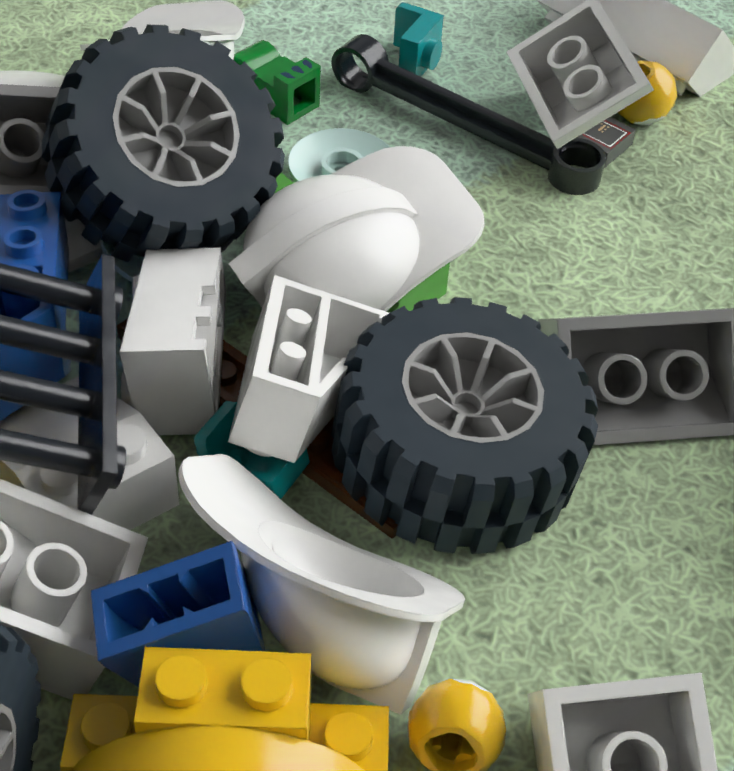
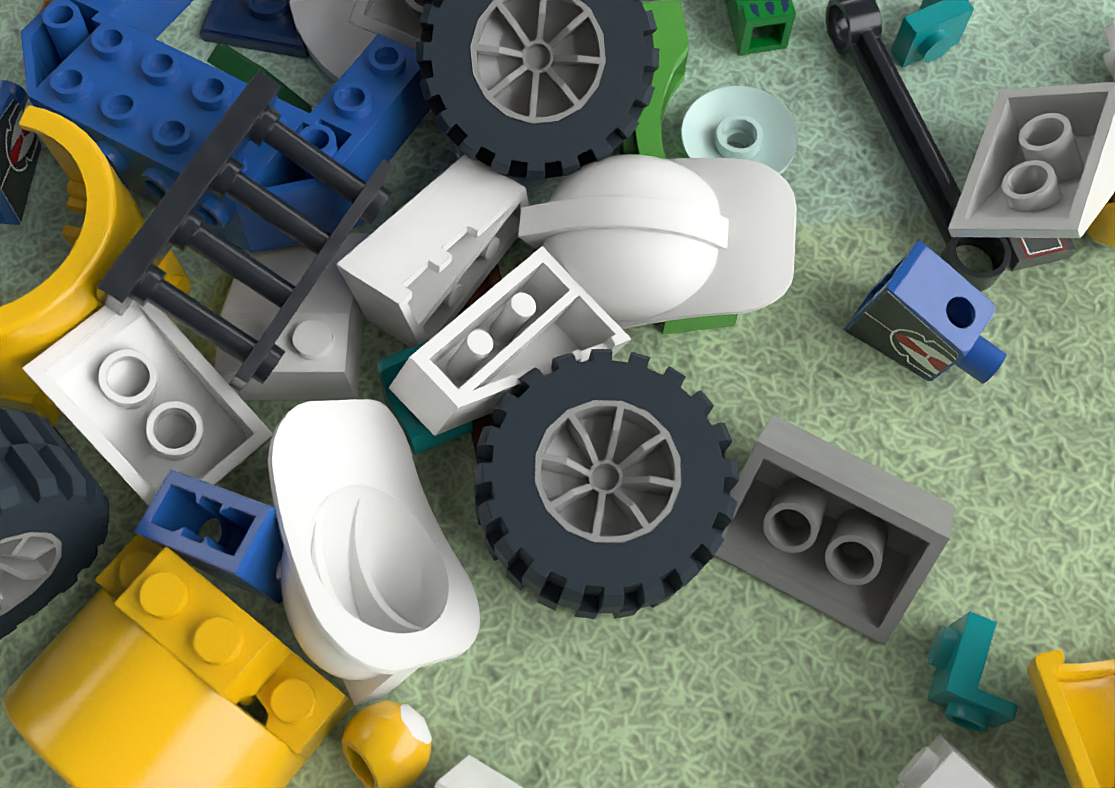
camera: 40 degrees right, 20 degrees up
(585, 206) = (928, 318): none -> torso

